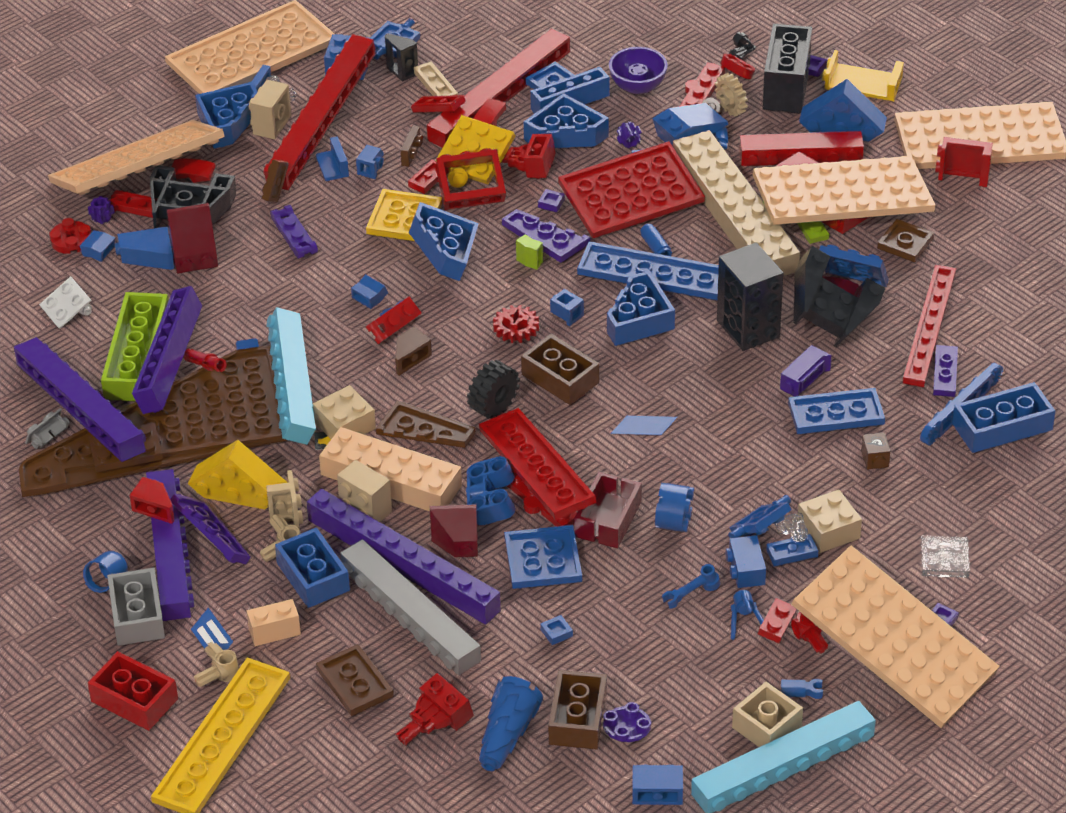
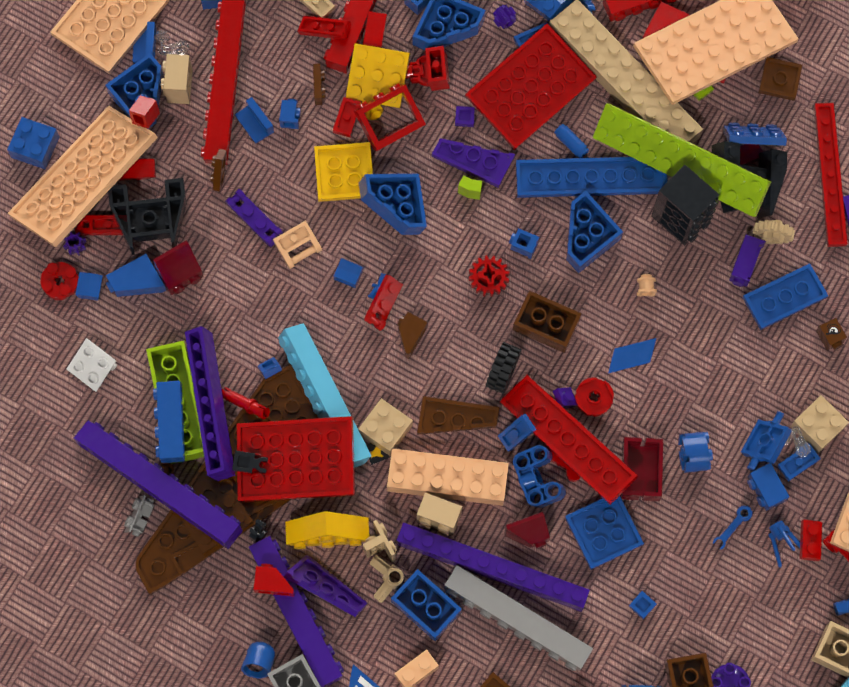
camera: 20 degrees left, 30 degrees up
(102, 129) = (33, 143): none -> blue brick
(117, 346) = (170, 421): none -> blue brick
(164, 460) = (258, 532): none -> black plate
(179, 396) = (246, 462): none -> black plate
(221, 113) = (144, 112): none -> red brick
(232, 408) = (303, 459): none -> red plate
(326, 251) = (294, 238): none -> light nougat plate
(484, 447) = (516, 432): none -> blue plate
(552, 435) = (565, 397): none -> dark purple plate
(591, 453) = (603, 402): none -> red plate
(683, 368) = (646, 285): none -> light nougat brick
(802, 279) = (670, 153): none -> lime plate
(844, 348) = (773, 232): none -> tan gear

